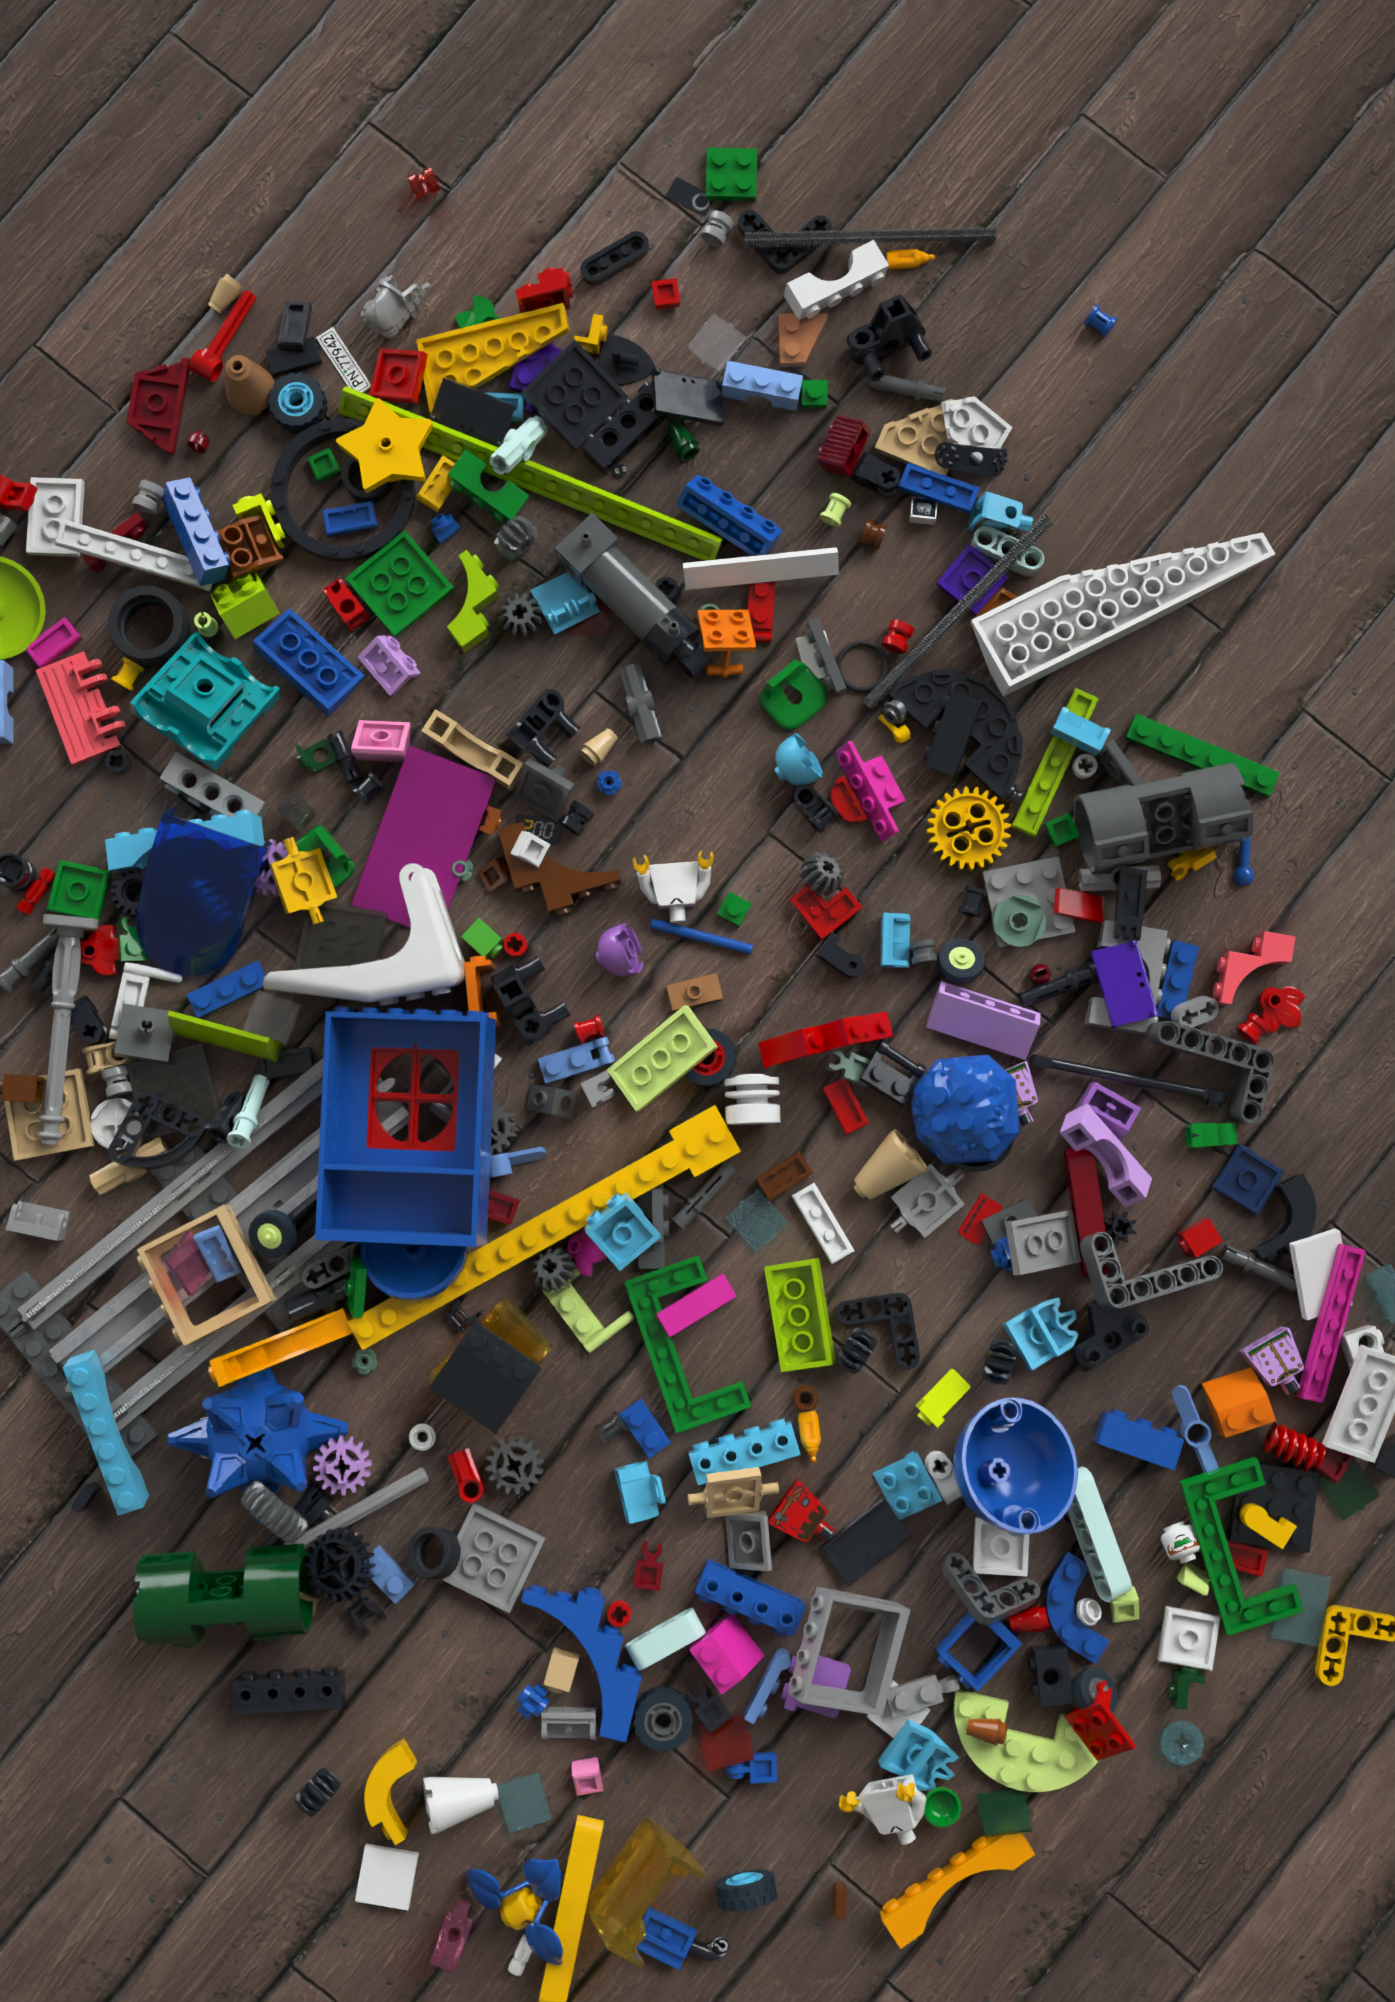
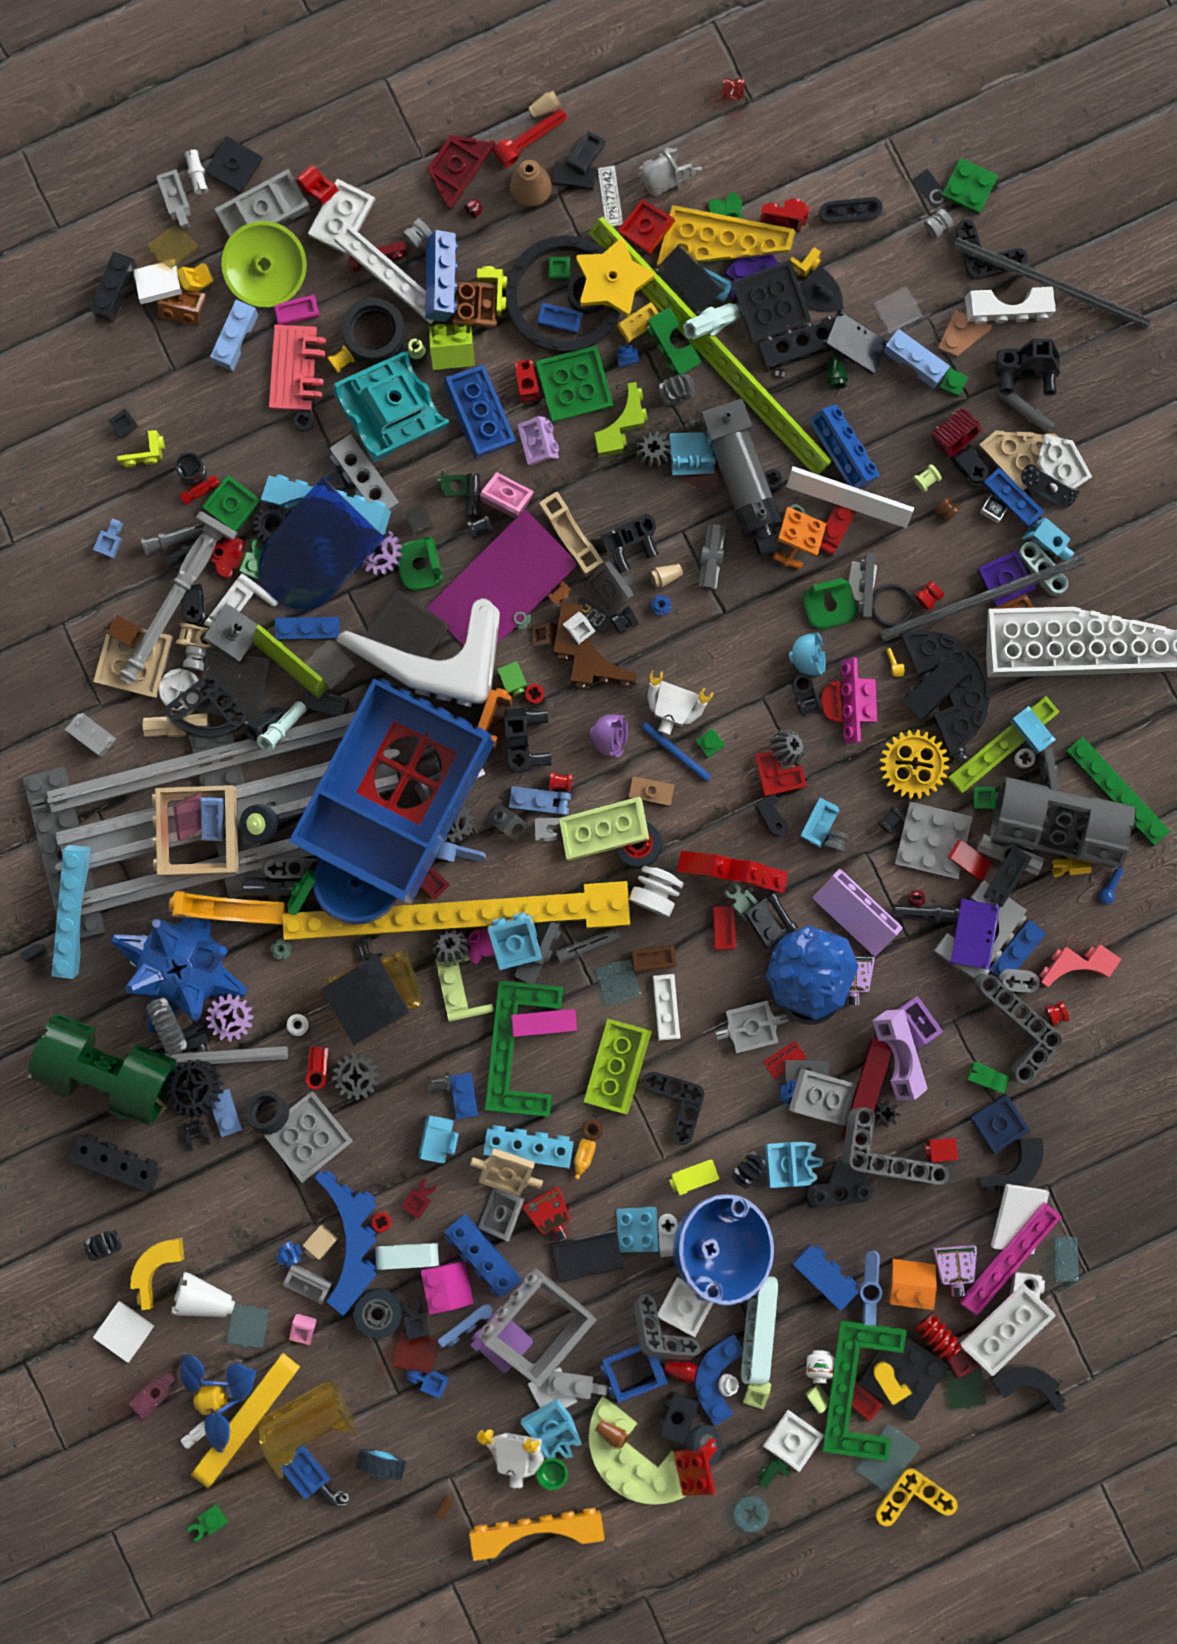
camera: 30 degrees right, 0 degrees up
(292, 389) = (561, 200): black wheel -> none
(303, 880) = (400, 573): yellow plate -> none
(665, 293) = (876, 255): red plate -> none
(856, 1350) = (646, 1111): black gear -> none
(889, 1167) = (735, 988): tan cone -> none
(894, 711) = (900, 651): dark grey plate -> none
(907, 258) = (1073, 311): light orange piece -> none
(961, 961) = (861, 860): black wheel -> none
(1004, 1812) = (596, 1500): clear green piece -> none
(1032, 915) = (917, 863): sand green plate -> none
(1213, 1097) = (1003, 1052): black hinge -> none
(1249, 1263) = (973, 1189): dark grey pin -> none
(1284, 1009) = (1087, 1011): red plate -> none

